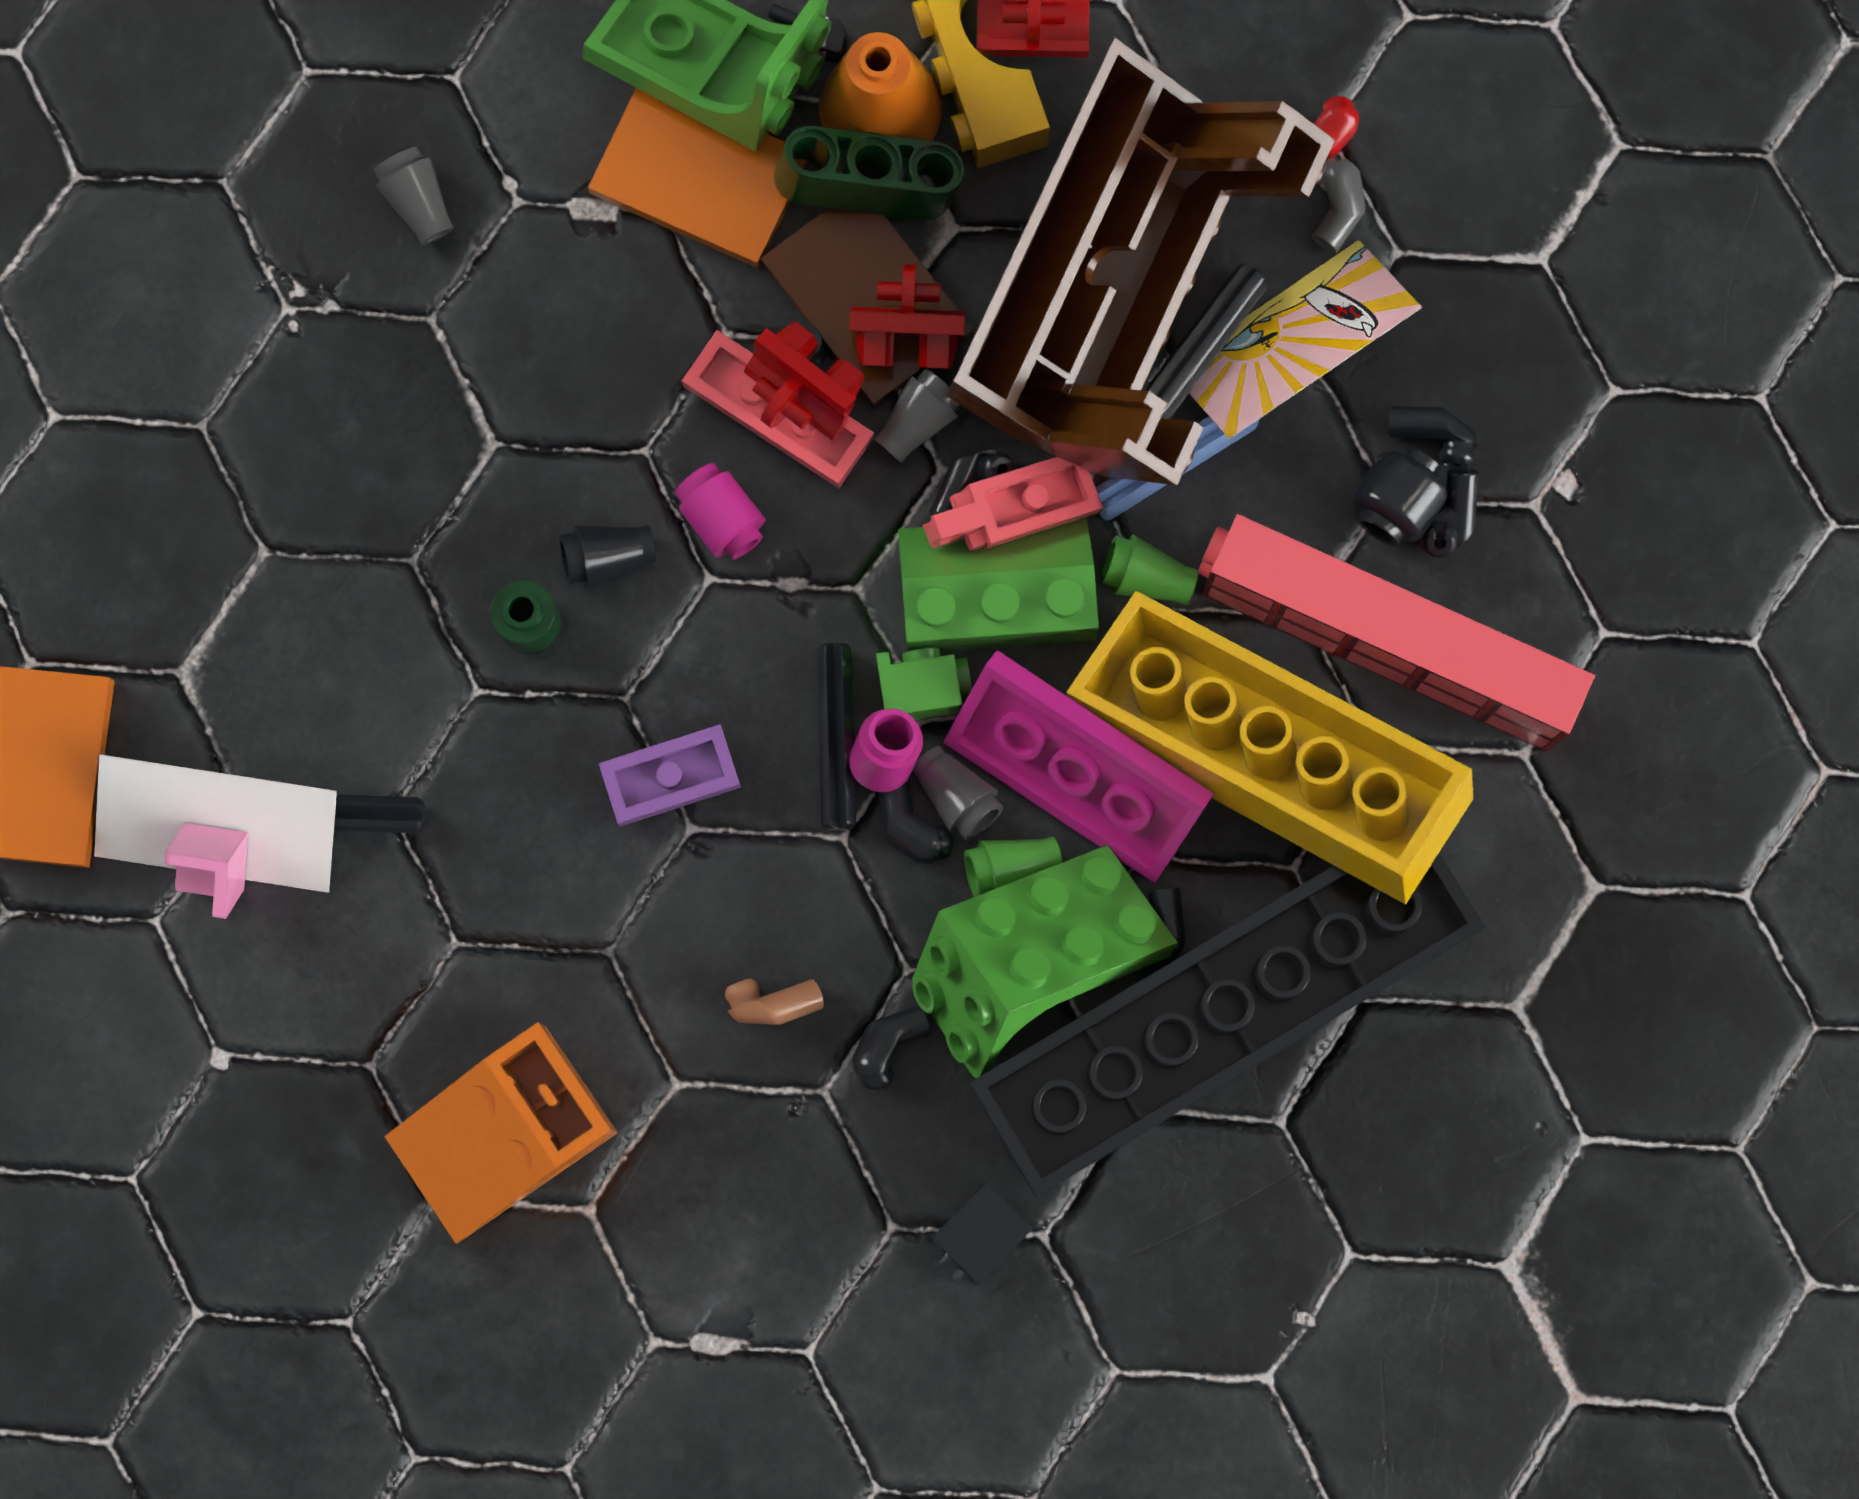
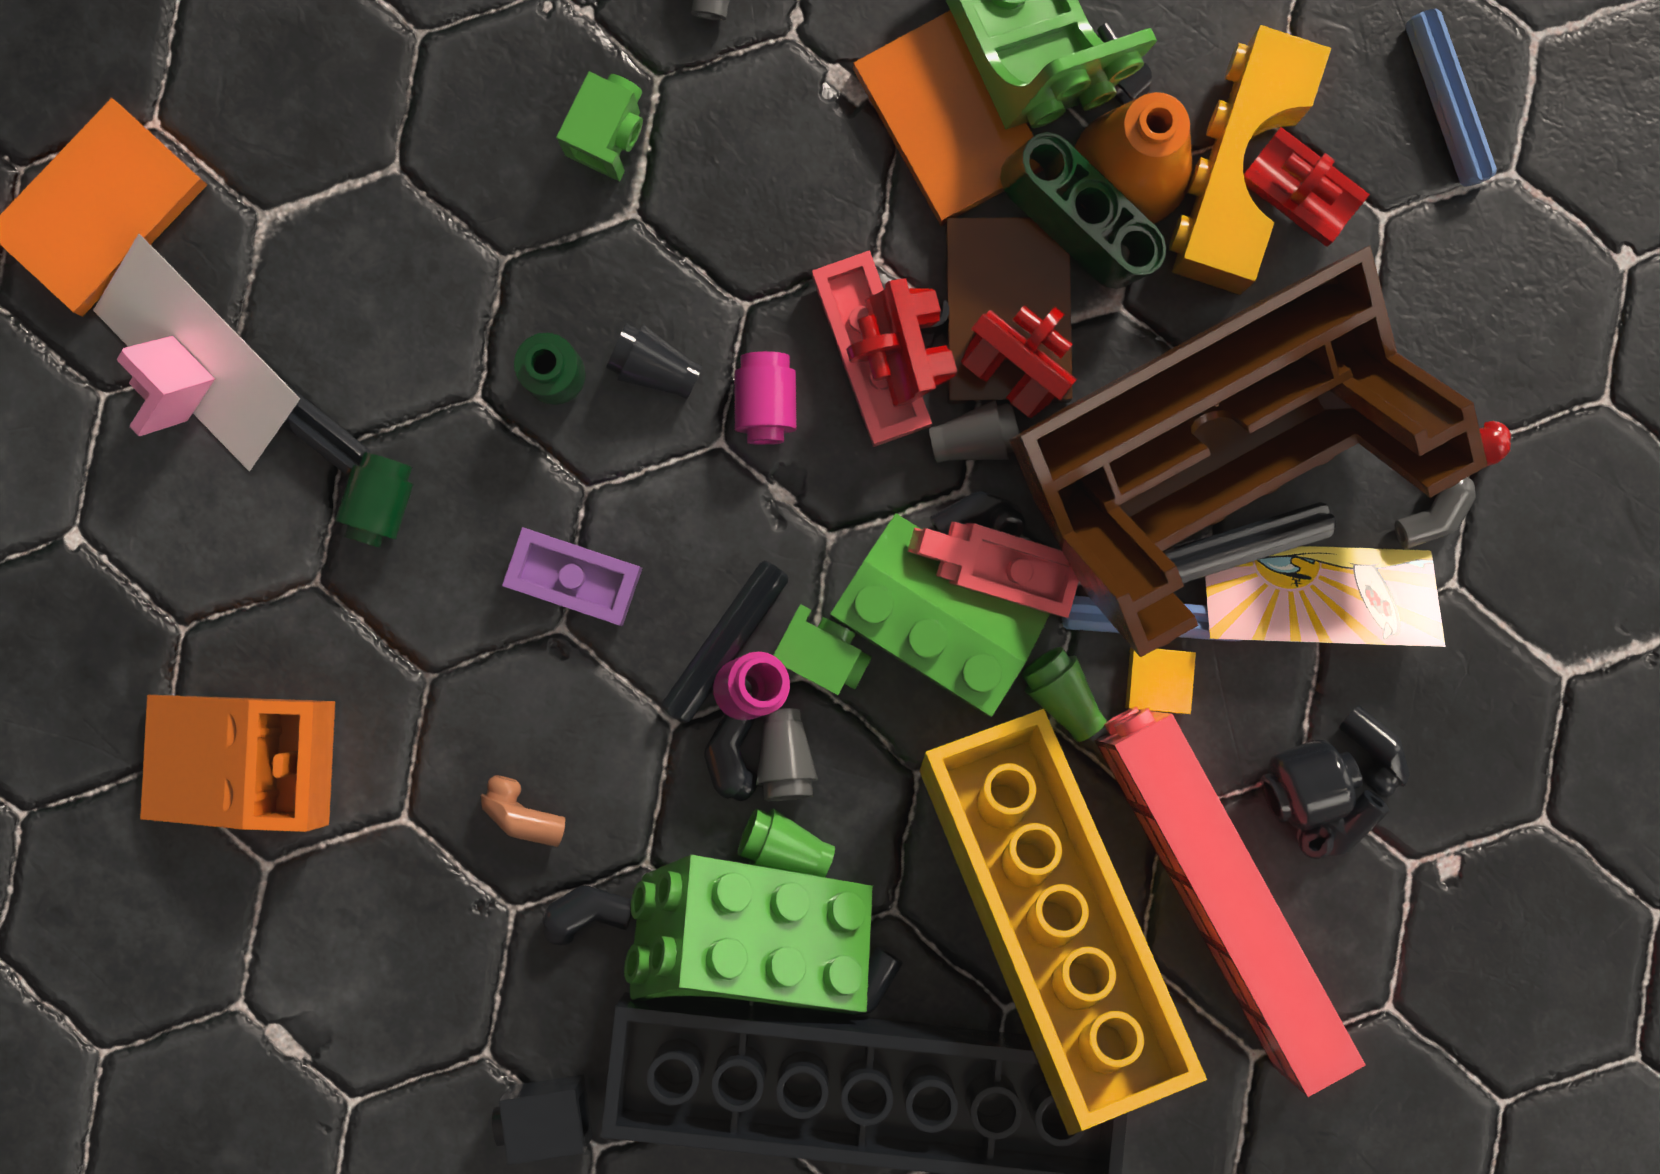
camera: 35 degrees right, 5 degrees up
(418, 387) = (602, 123): none -> bright green brick
(457, 832) = (375, 499): none -> dark green brick
(1076, 766) = (893, 814): dark pink plate -> none
(1215, 502) = (1161, 681): none -> yellow tile

